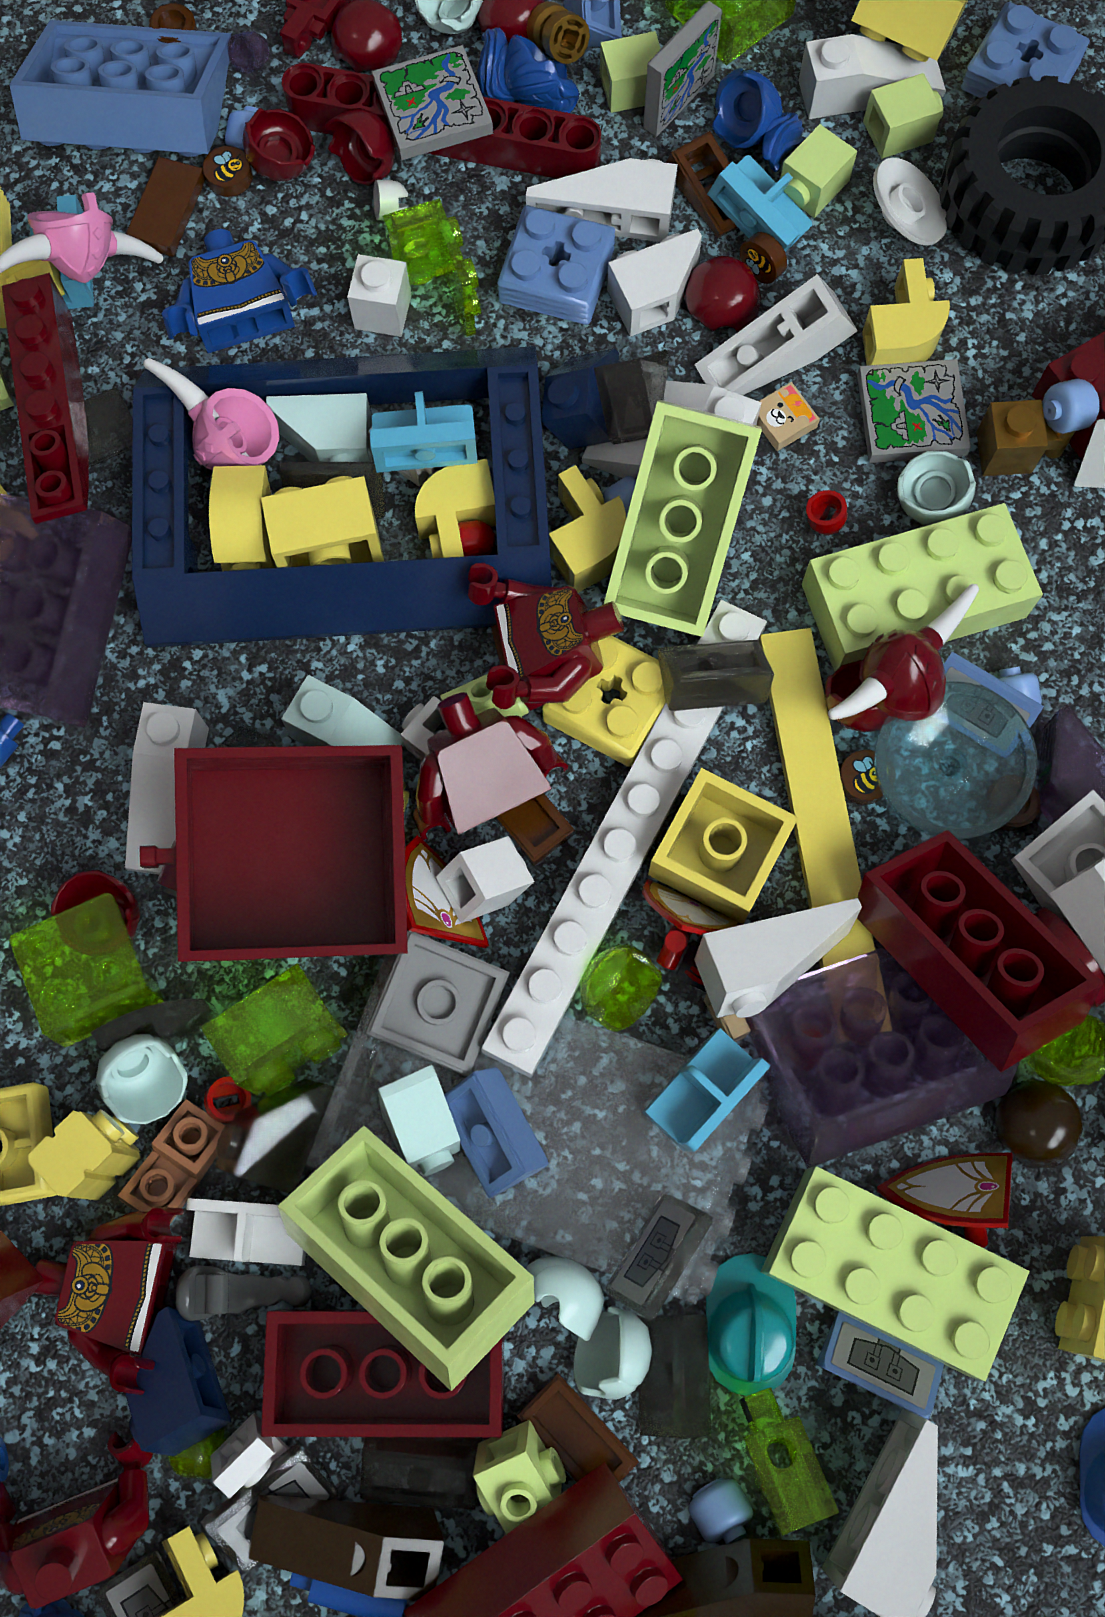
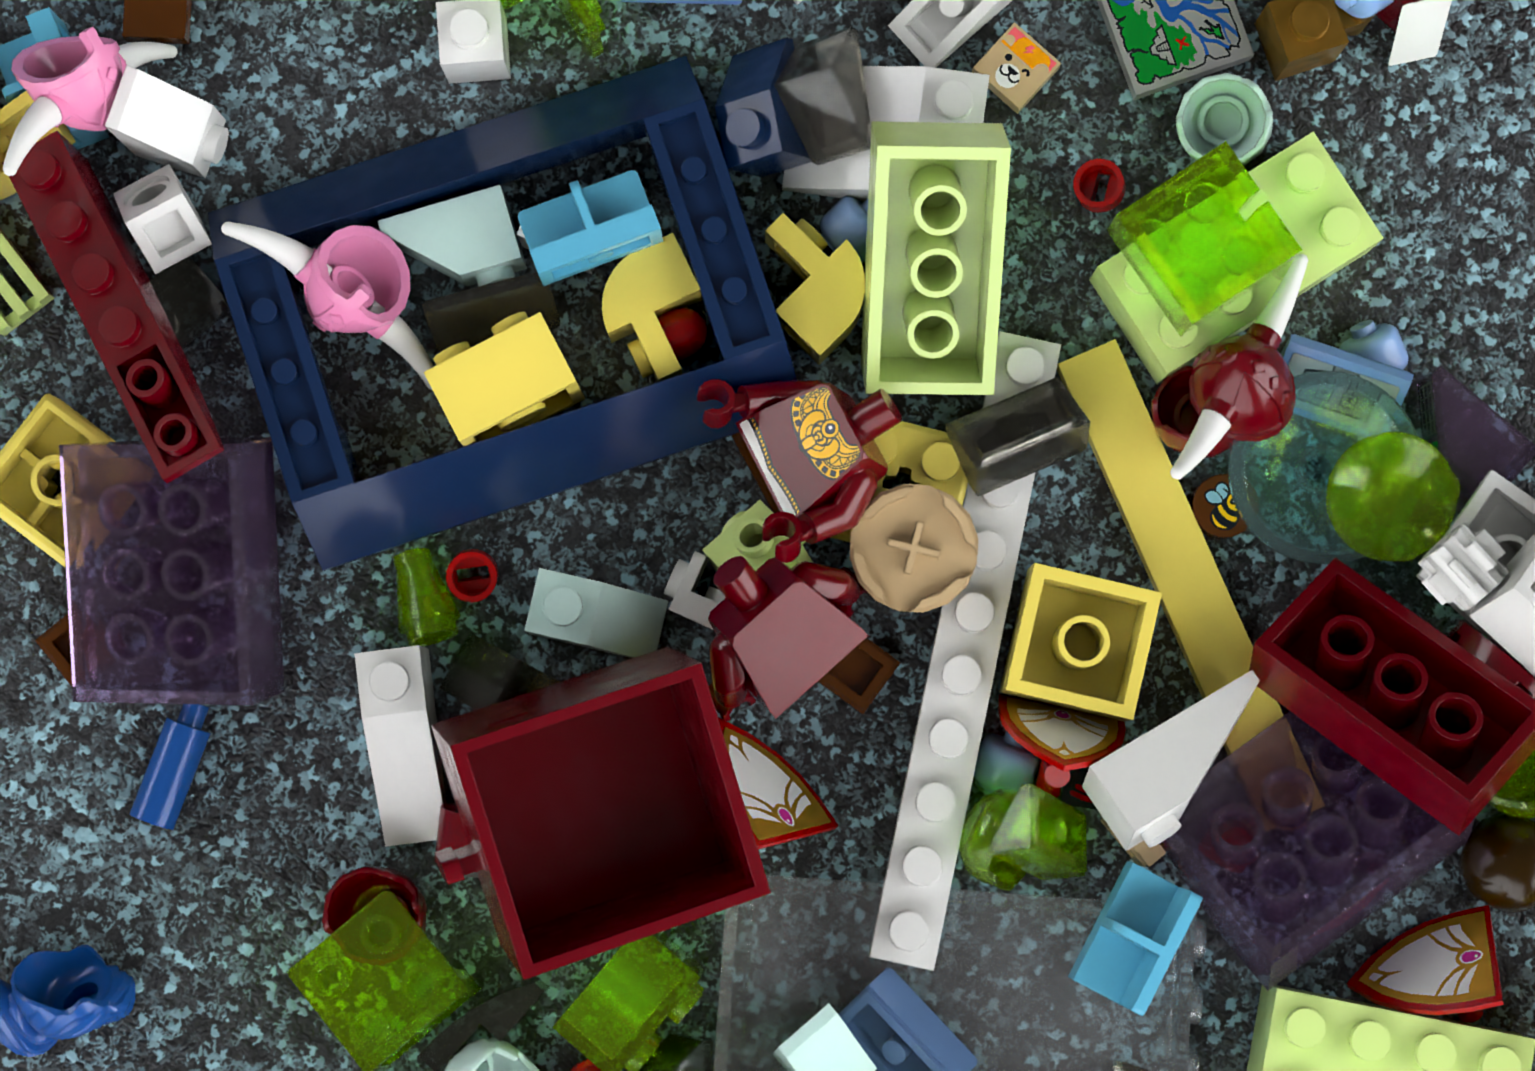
camera: 15 degrees left, 10 degrees up
(107, 359) = (162, 219): none -> white brick
(129, 291) = (166, 124): none -> white slope
(214, 686) = (423, 600): none -> clear neon green cone
(235, 294) = (290, 83): blue torso -> none
(238, 519) = (398, 395): light yellow brick -> none
(260, 665) = (476, 587): none -> red hinge
(437, 1003) = (810, 922): light grey tile -> none
(484, 879) = (815, 754): white brick -> none
(607, 735) = (914, 548): none -> tan tile
(640, 931) = (1004, 764): none -> piece
(650, 991) = (1042, 836): none -> clear neon green slope
(889, 548) = (1196, 245): none -> clear neon green piece
(1005, 791) = (1391, 496): none -> clear neon green dish
(1053, 852) = (1463, 567): none -> white gear

